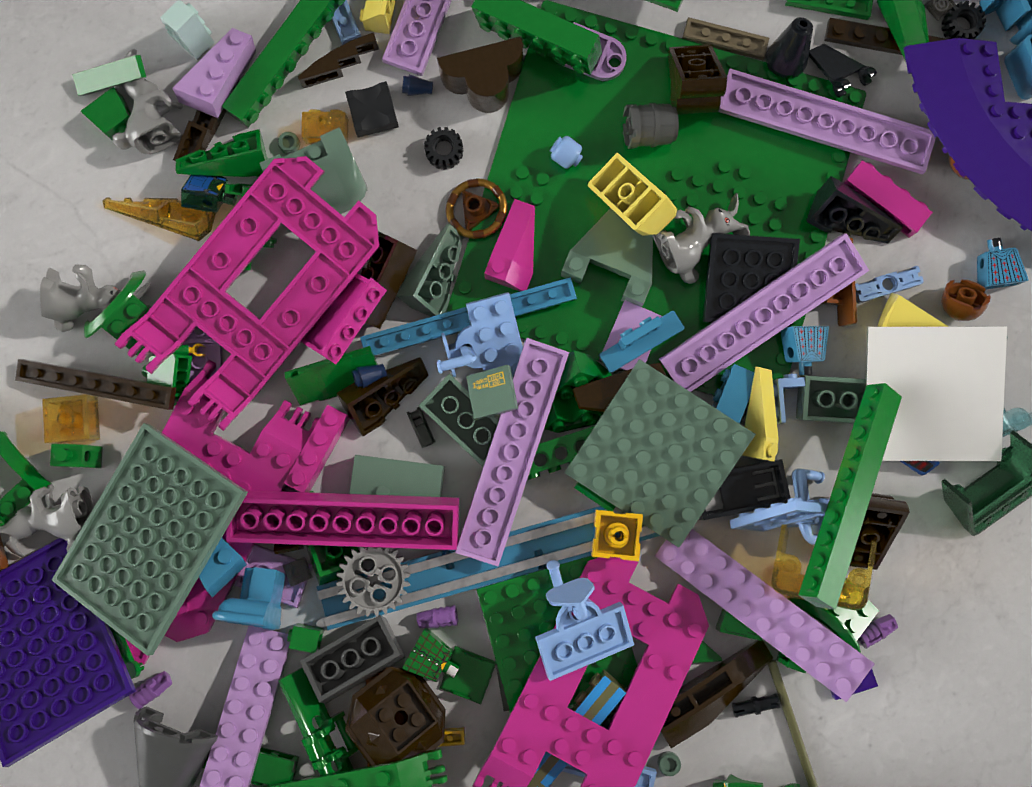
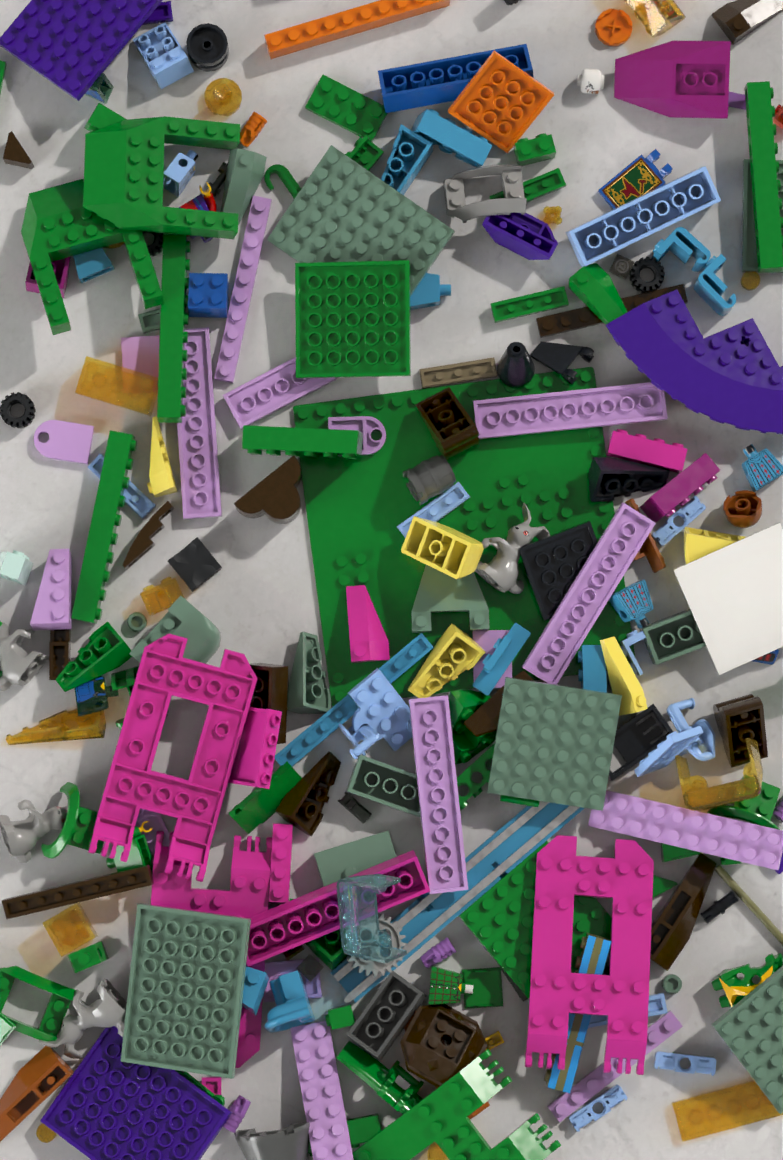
camera: 30 degrees left, 0 degrees up
(366, 547) = (360, 918): none -> clear light blue windscreen
(367, 375) = (295, 785): dark blue cone -> none
(416, 86) = (221, 527): dark blue cone -> none
(437, 137) = (268, 558): black tyre -> none
(476, 208) = (318, 608): reddish brown piece -> none
(492, 392) = (401, 755): sand green tile -> none
(566, 152) = (371, 530): light blue head -> none
(582, 636) = (560, 910): light blue plate -> none
(586, 318) = (447, 660): none -> light yellow wedge
(607, 545) = (539, 817): yellow piece -> none
(650, 160) = (438, 507): none -> light blue tile
(850, 497) = (712, 710): green brick -> none
(907, 249) = (680, 488): none -> magenta wedge

